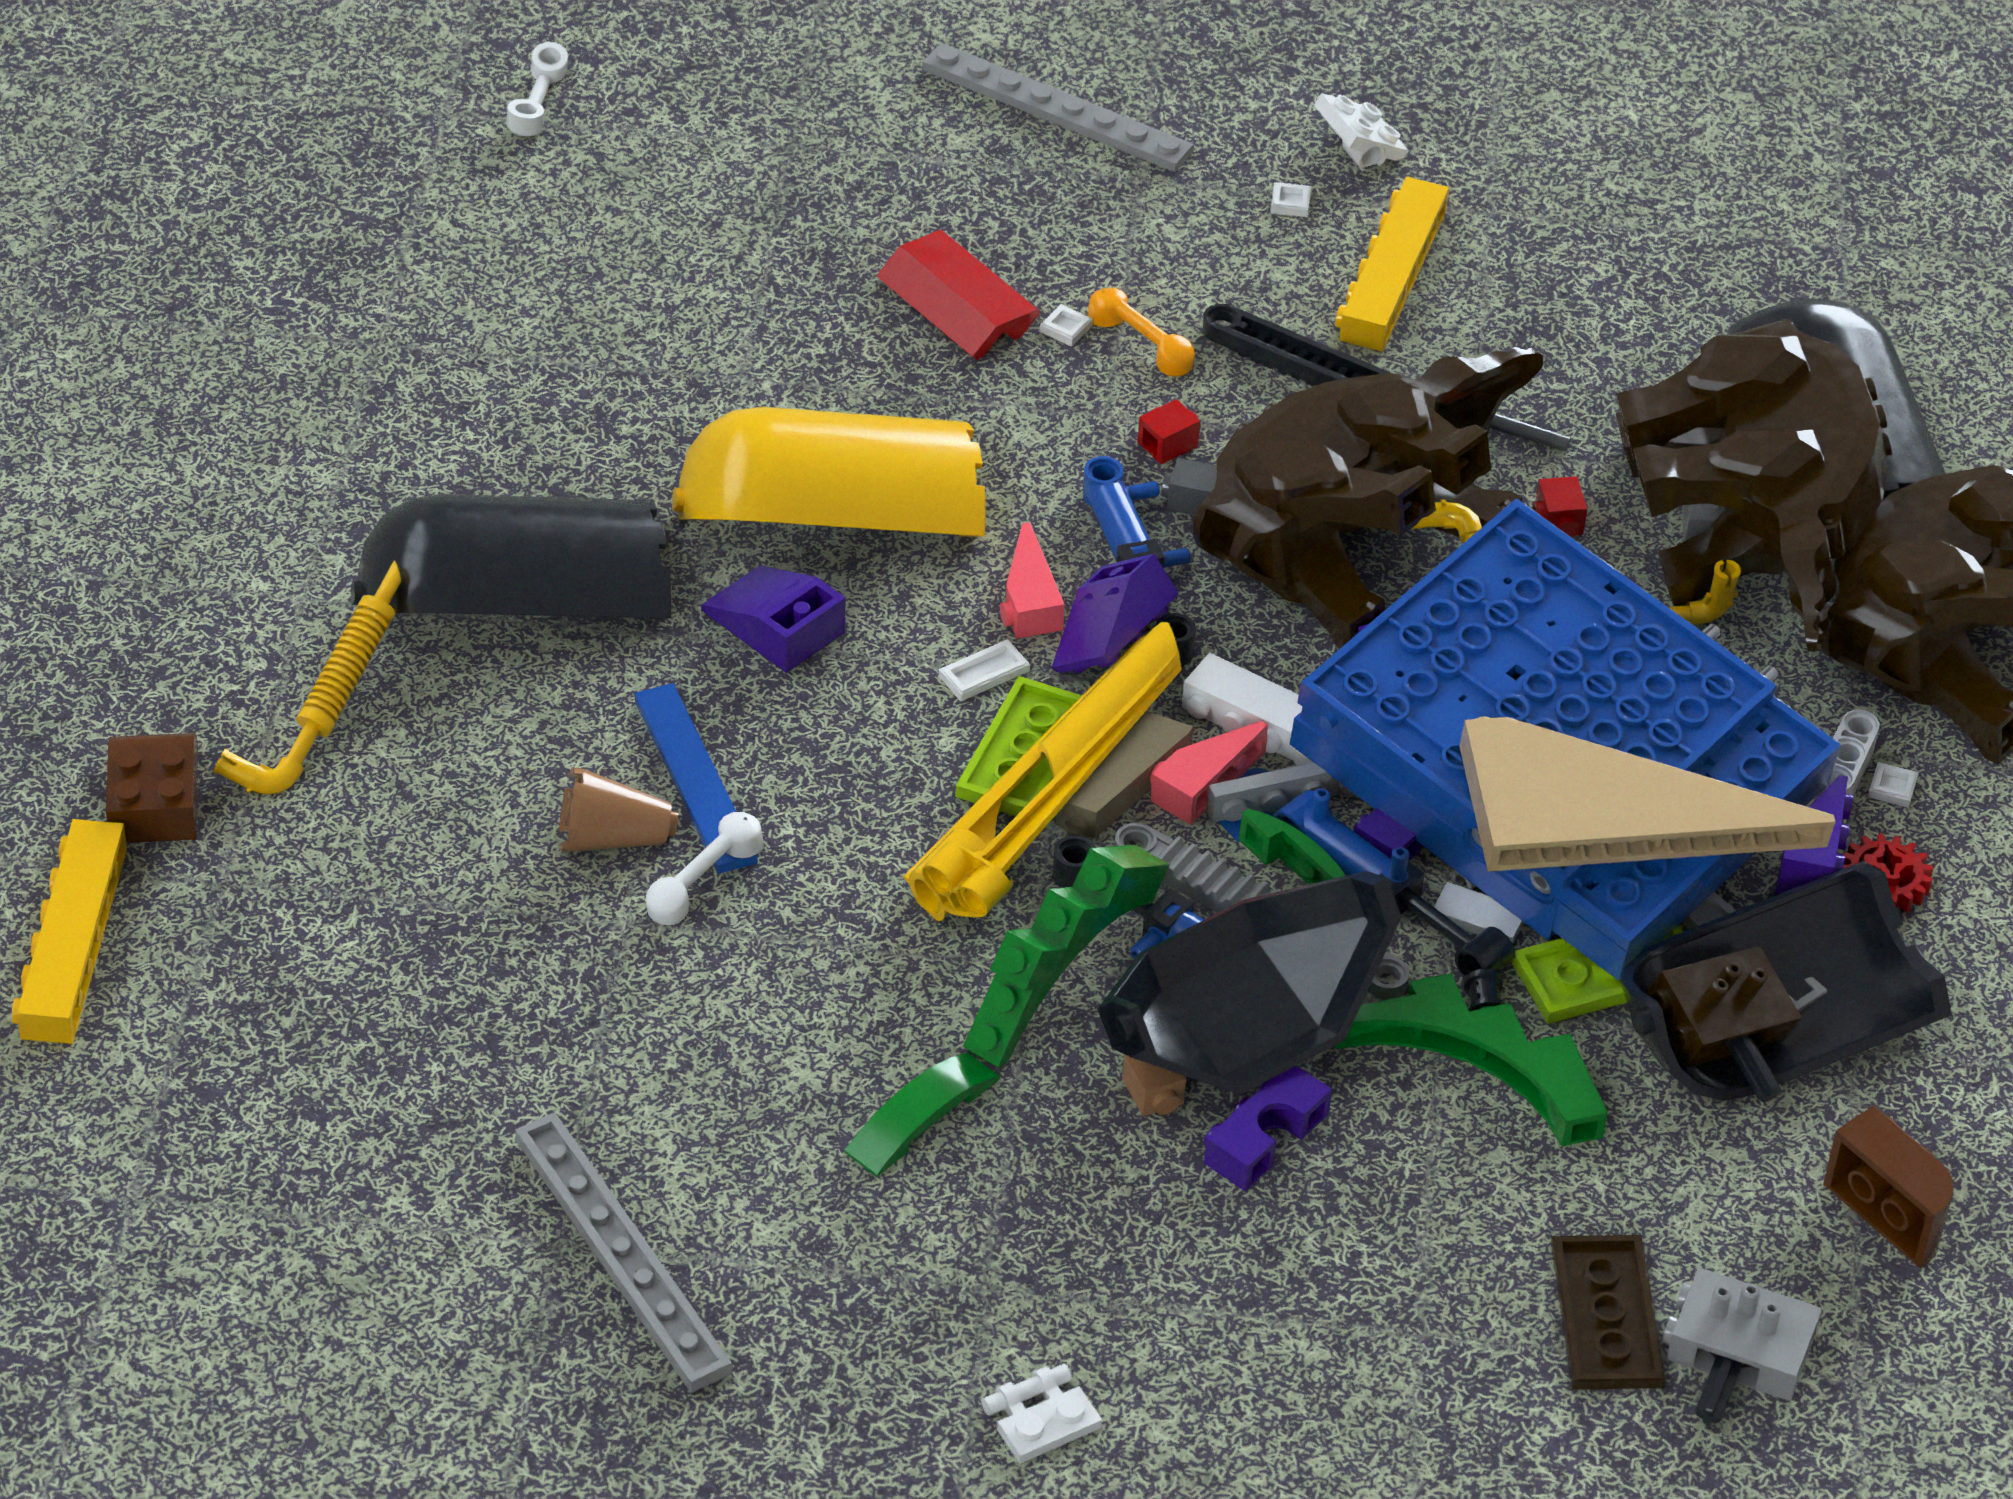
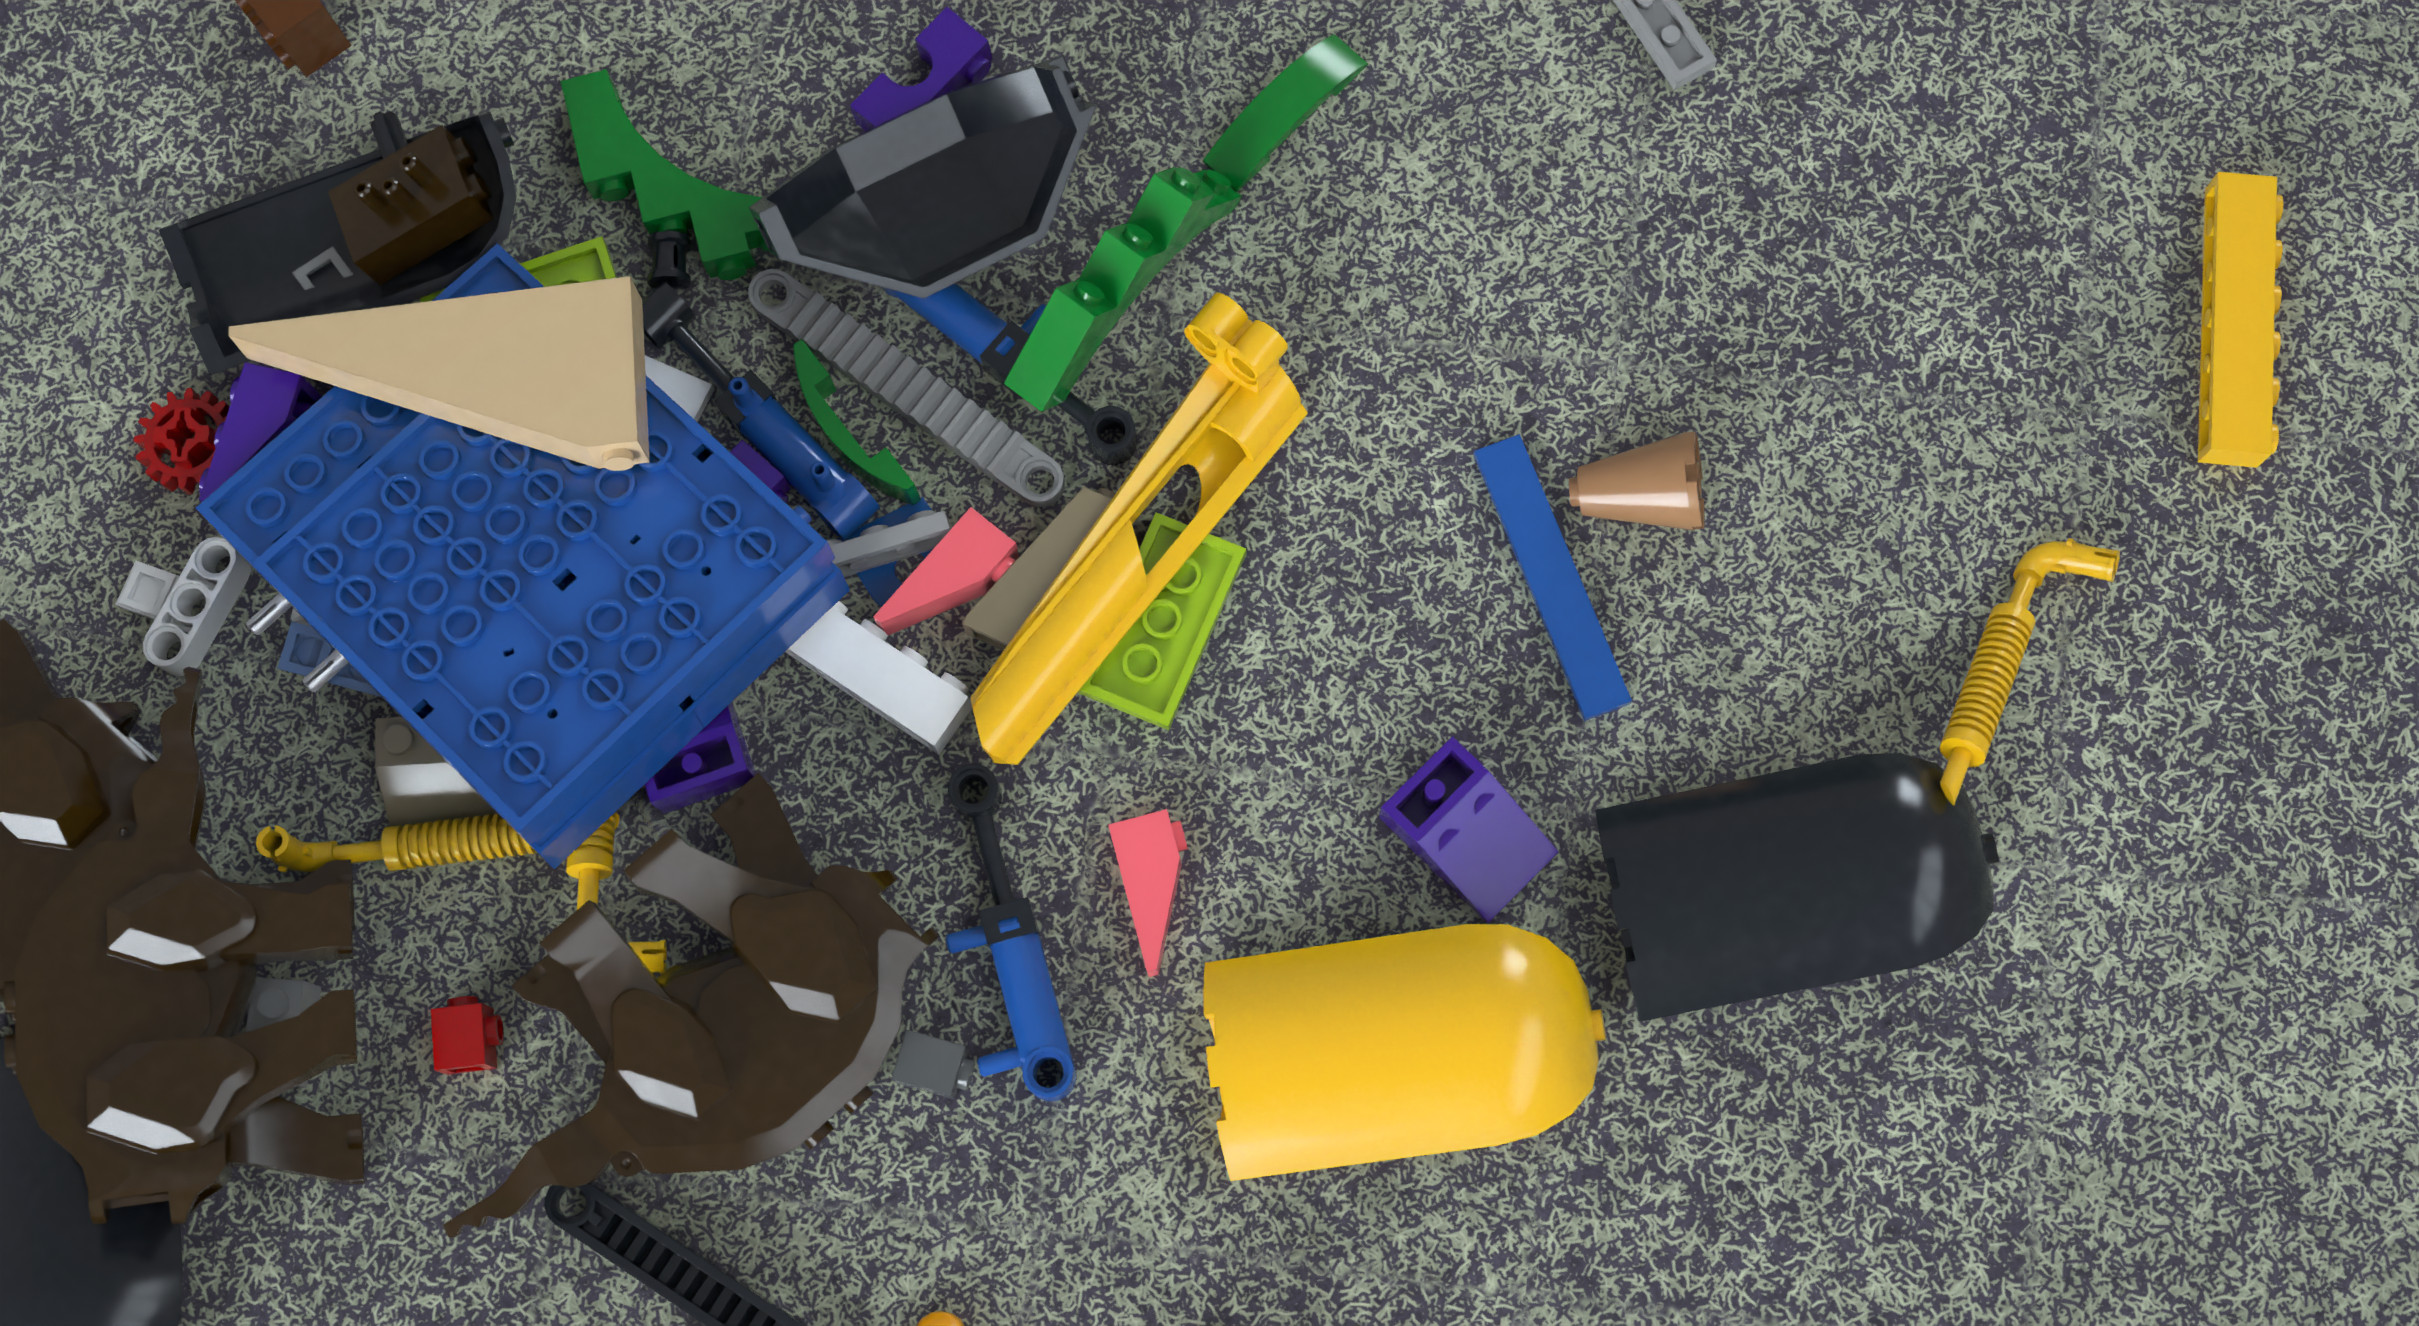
camera: 170 degrees left, 30 degrees up
(153, 786) = (2189, 537): reddish brown brick -> none
(668, 896) = (1571, 382): white piece -> none
(984, 670) = (1209, 756): white tile -> none
(1113, 612) = (1051, 803): dark purple slope -> none
(1168, 431) = (956, 1177): red brick -> none
(1530, 432) = (521, 1222): dark grey bar -> none

